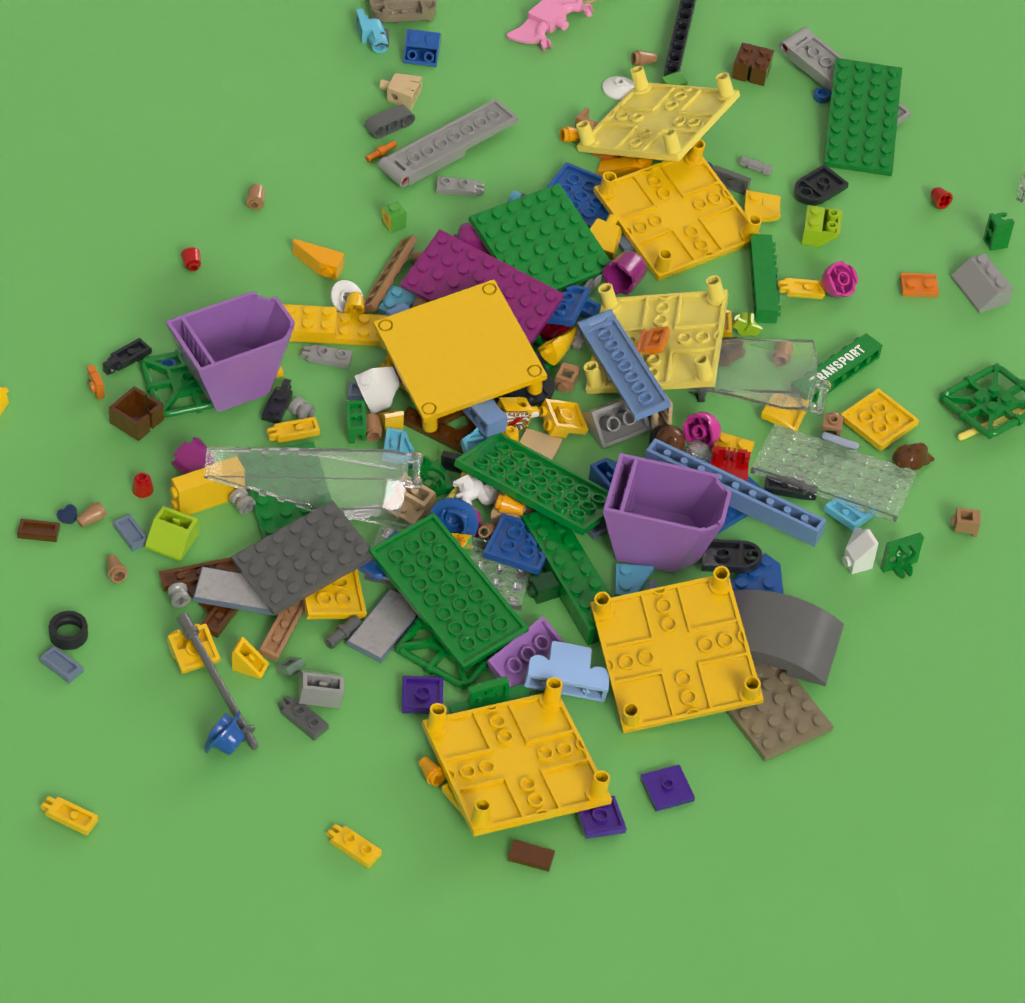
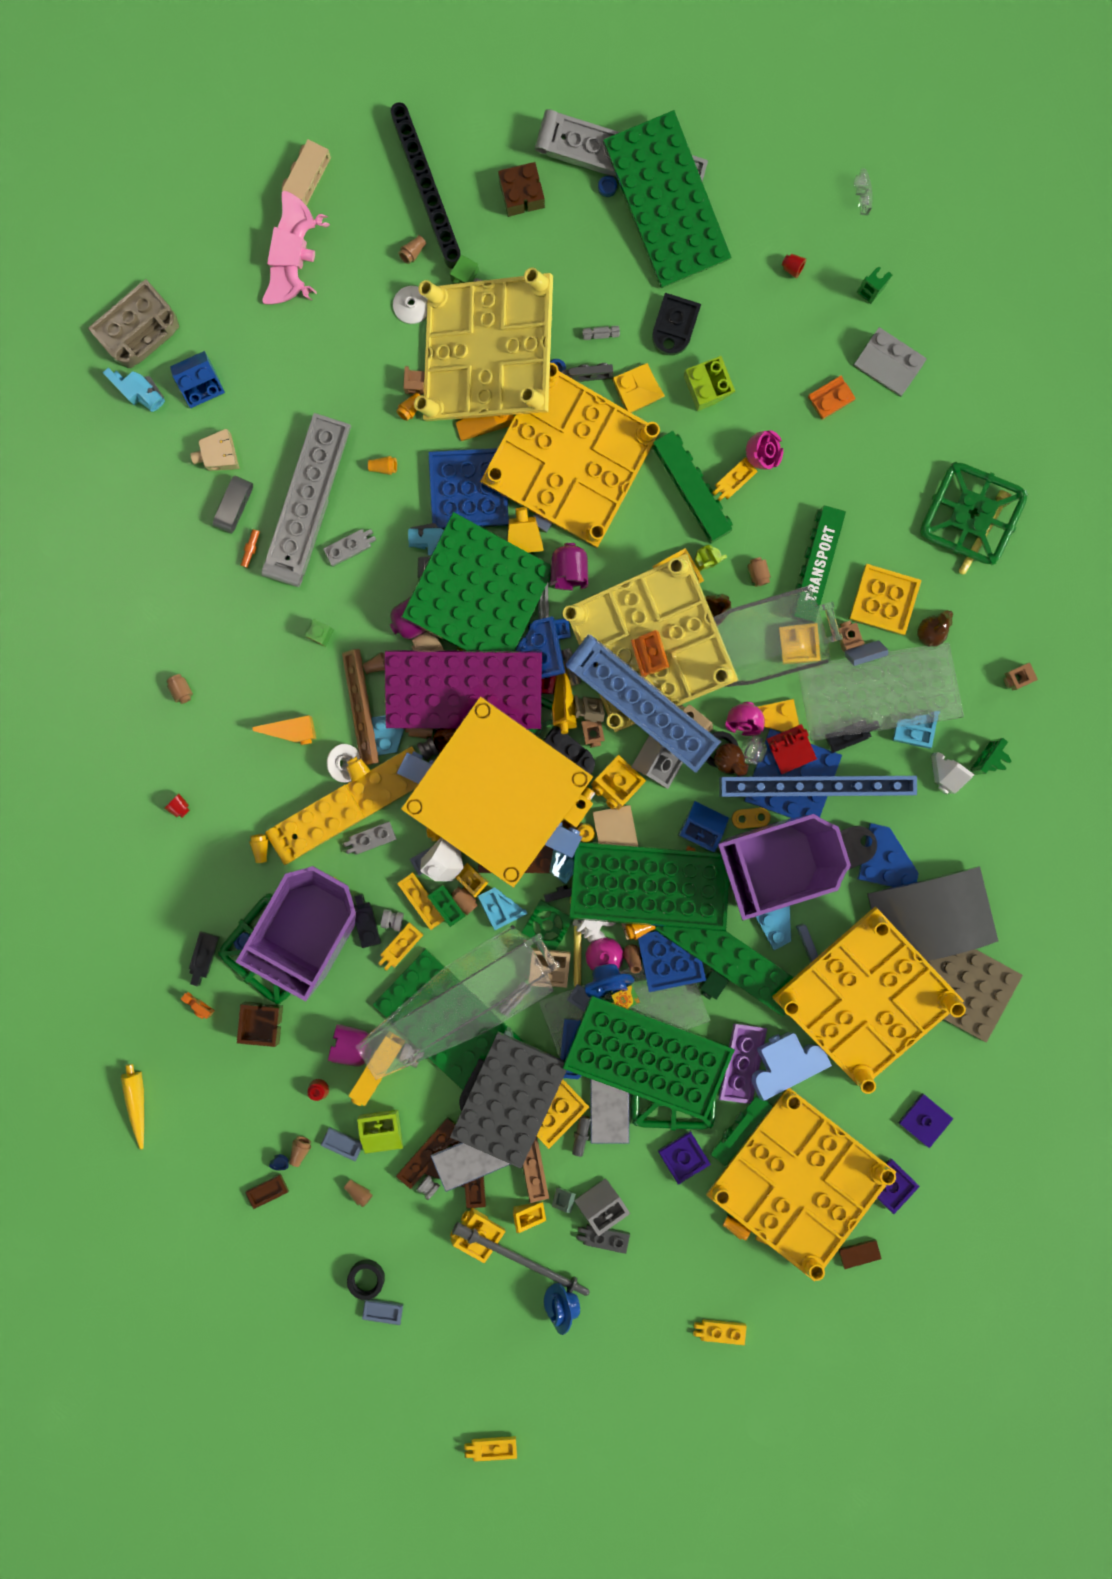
camera: 30 degrees left, 40 degrees up
(336, 411) = (418, 897): none -> yellow plate
(526, 155) = (383, 465): none -> light orange cone
(575, 356) = (590, 708): none -> dark tan plate

